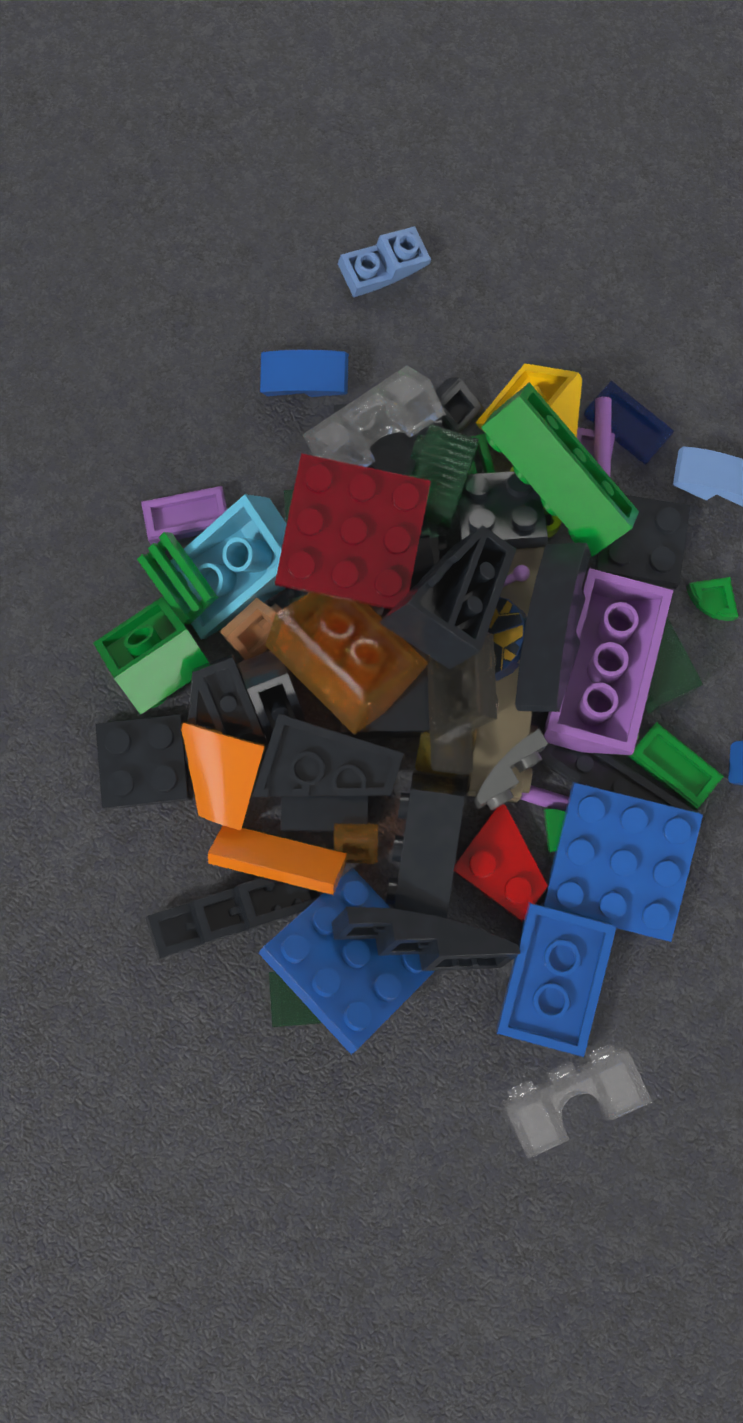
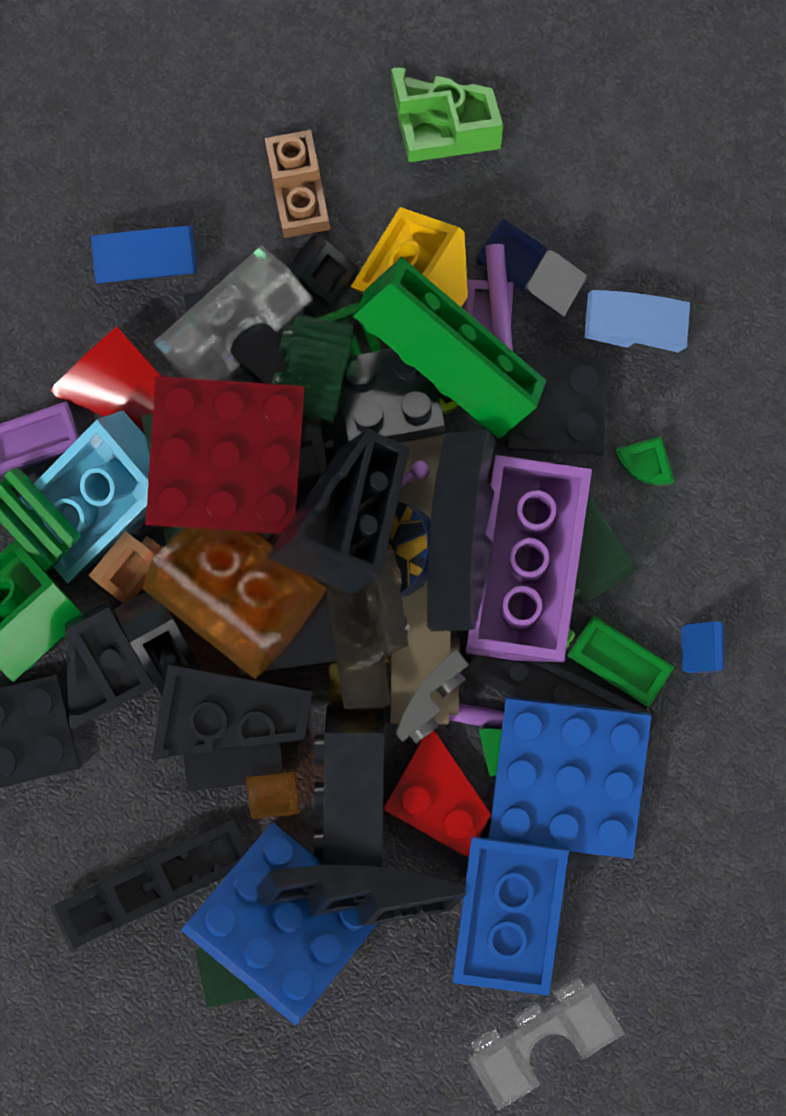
camera: 10 degrees left, 5 degrees up
(221, 773) = (113, 736): orange slope -> none
(260, 469) = (111, 380): none -> red slope
(278, 859) = (188, 823): orange tile -> none
(387, 262) = (220, 102): medium blue slope -> none
(440, 334) = (297, 184): none -> medium nougat slope
(572, 295) = (445, 117): none -> bright green slope
(652, 435) = (554, 283): none -> slope

